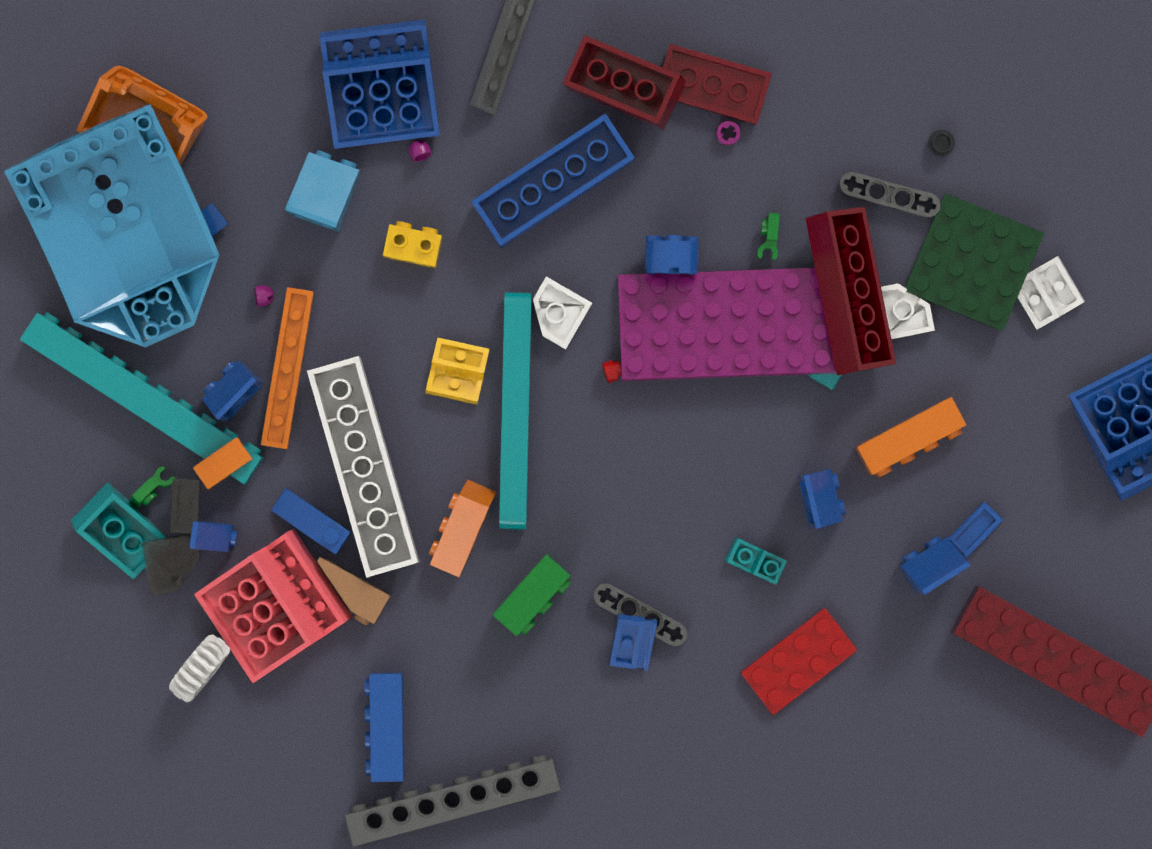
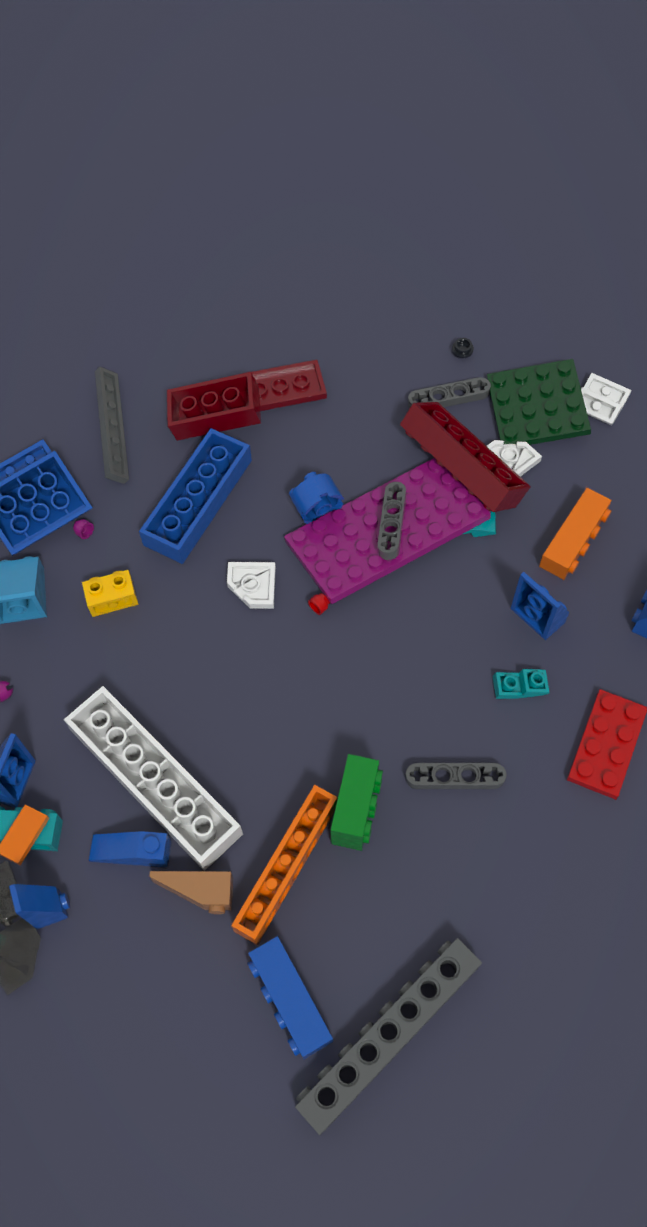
camera: 25 degrees left, 25 degrees down
(199, 668) = (82, 1038): white gear -> none
(273, 605) = (127, 943): coral slope -> none
(287, 368) = (49, 737): orange plate -> none
(441, 614) = (285, 865): none -> orange brick
(457, 371) = (194, 667): yellow slope -> none
(461, 527) = (263, 784): orange wedge -> none
(515, 411) = (261, 674): teal beam -> none
(632, 642) = (464, 798): blue plate -> none
(725, 125) = (309, 405): magenta bush -> none
(728, 323) = (392, 520): none -> dark grey beam
(770, 229) = (381, 453): green plate -> none

